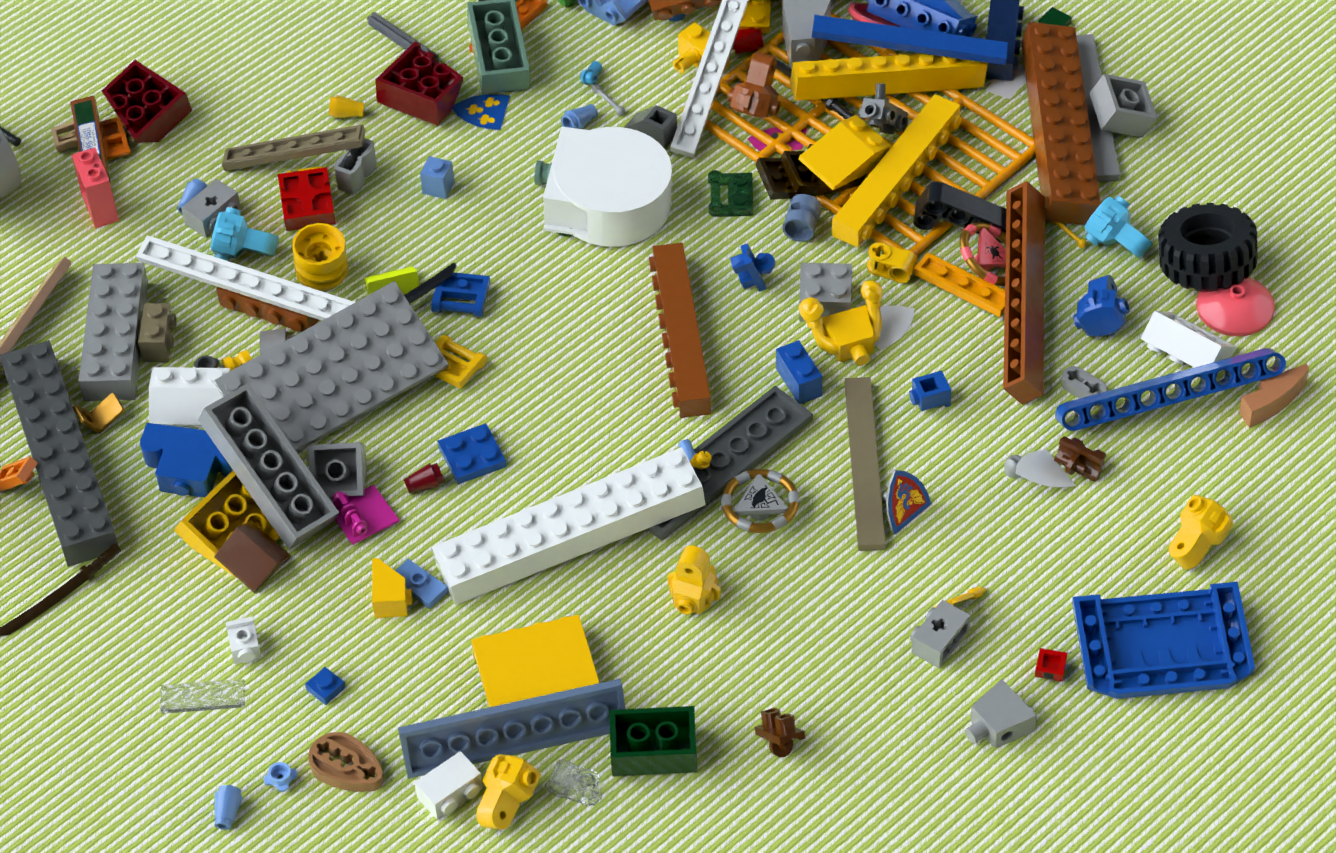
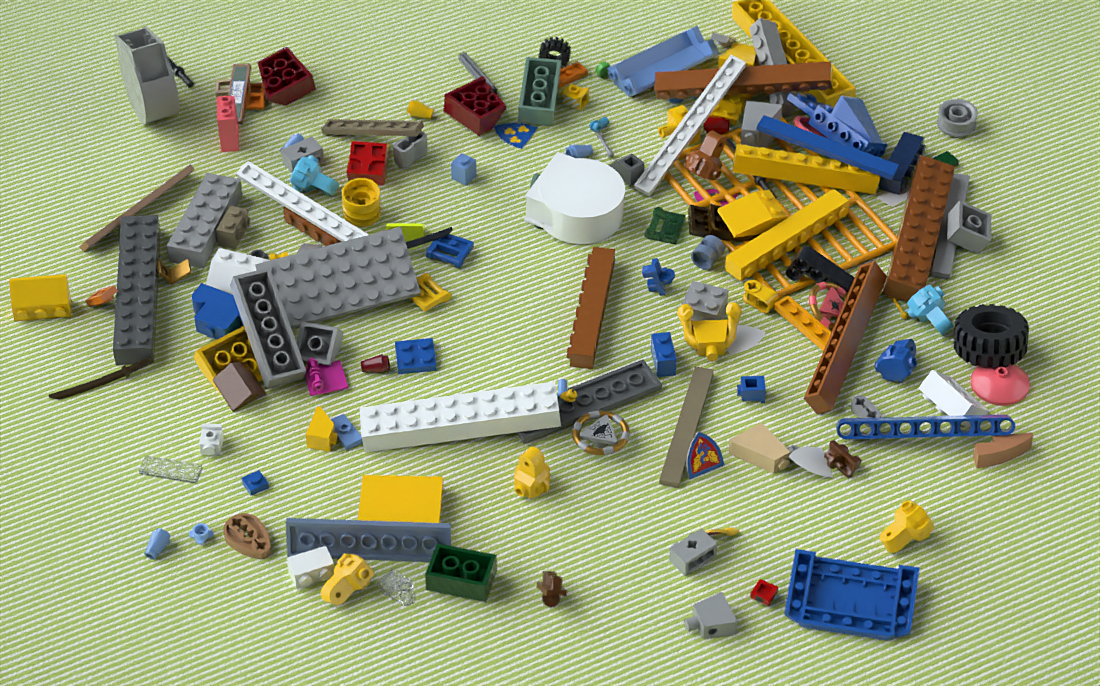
camera: 15 degrees right, 5 degrees down
(544, 42) = (575, 96): none -> yellow brick
(882, 113) = (788, 193): dark grey brick -> none
(973, 471) = (760, 449): none -> tan slope

